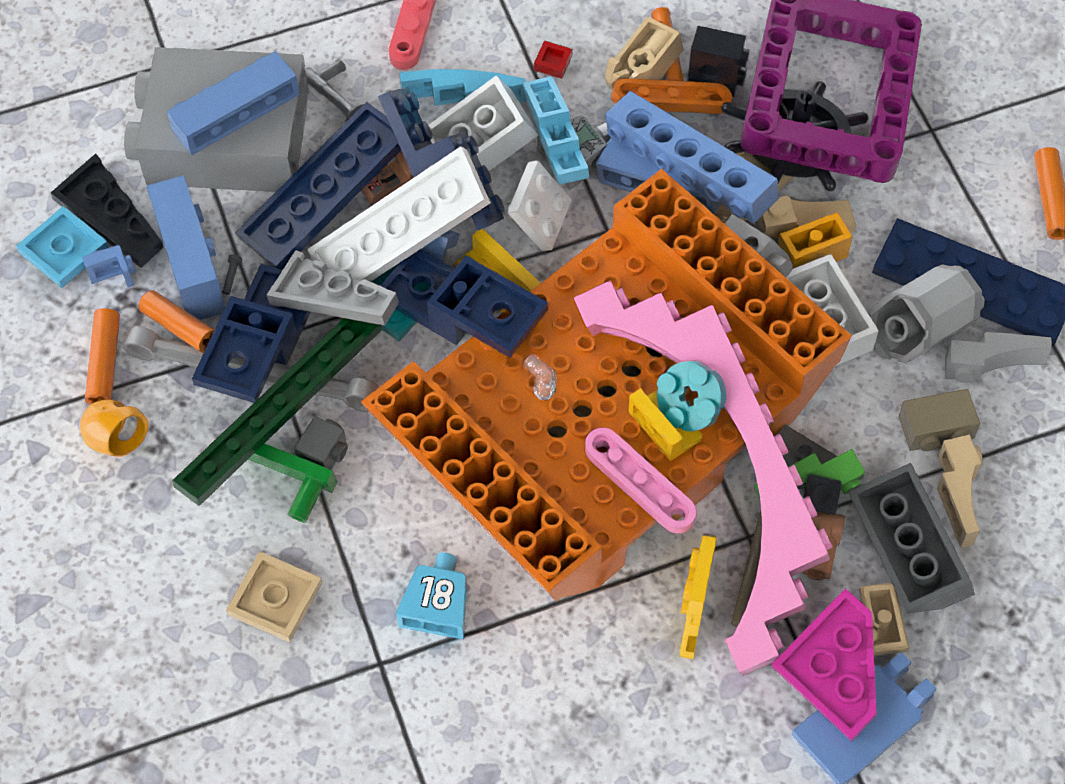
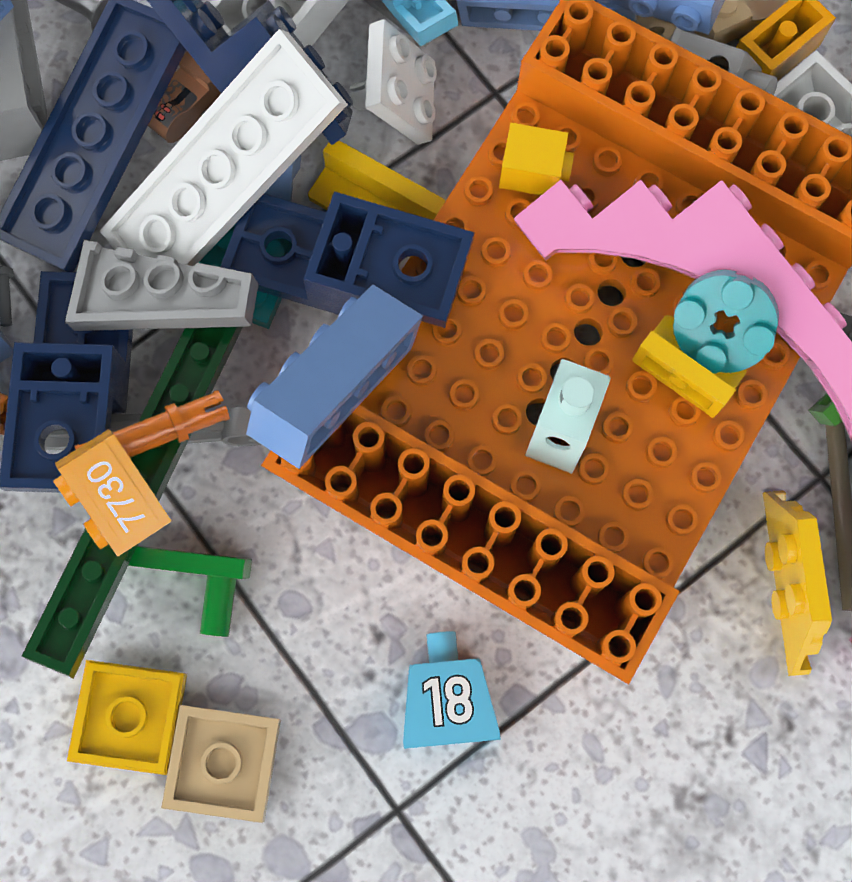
camera: 20 degrees left, 15 degrees up
(222, 551) = (126, 717): none -> yellow plate
(261, 394) = (111, 492): none -> light orange brick
(300, 371) = (171, 425): none -> orange pin
(322, 443) = (215, 518): dark grey brick -> none
(425, 357) = (331, 375): none -> medium blue brick
(545, 377) = (504, 346): clear arm -> none
(570, 421) = (568, 415): none -> light aqua torso
(603, 265) = (535, 159): none -> yellow brick
(640, 480) = (689, 464): bright pink plate -> none

